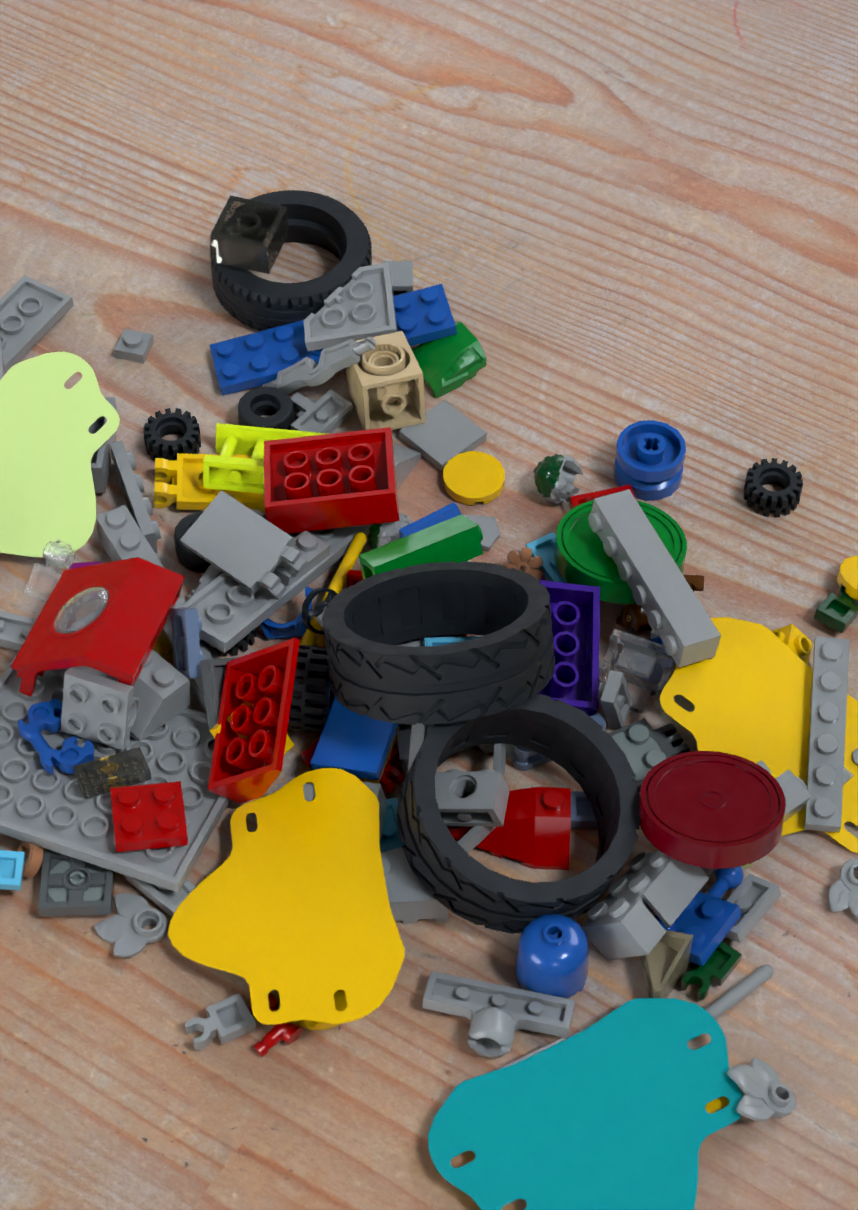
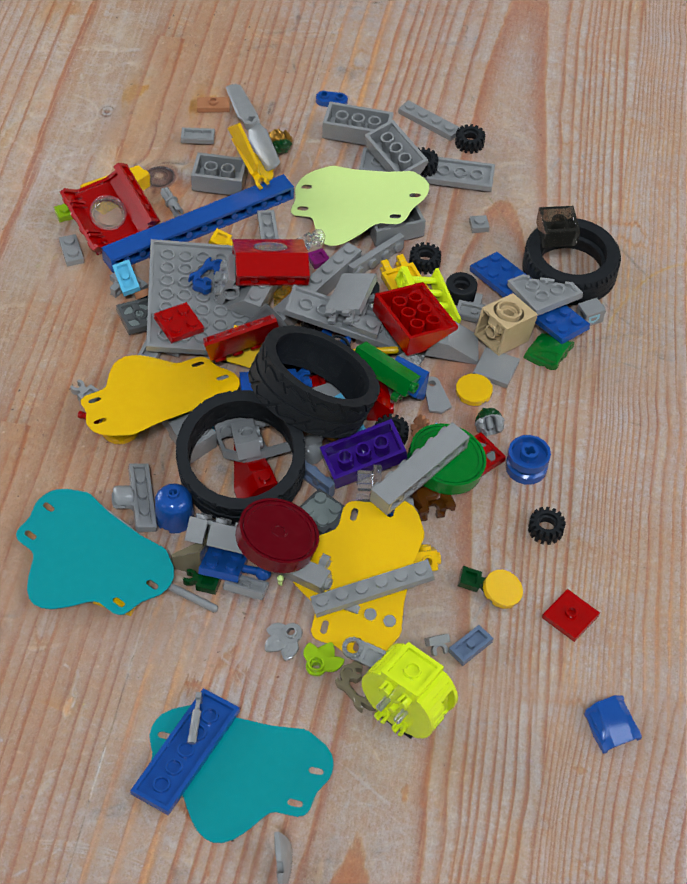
camera: 65 degrees right, 0 degrees up
(111, 772) = (199, 302): clear smoke tile -> none
(128, 926) = (126, 345): light grey plate -> none
(186, 641) = (281, 291): sand blue plate -> none
(331, 361) = (494, 291): light grey piece -> none
(615, 699) = (344, 486): light grey plate -> none
(763, 1091) = (135, 617): light grey plate -> none

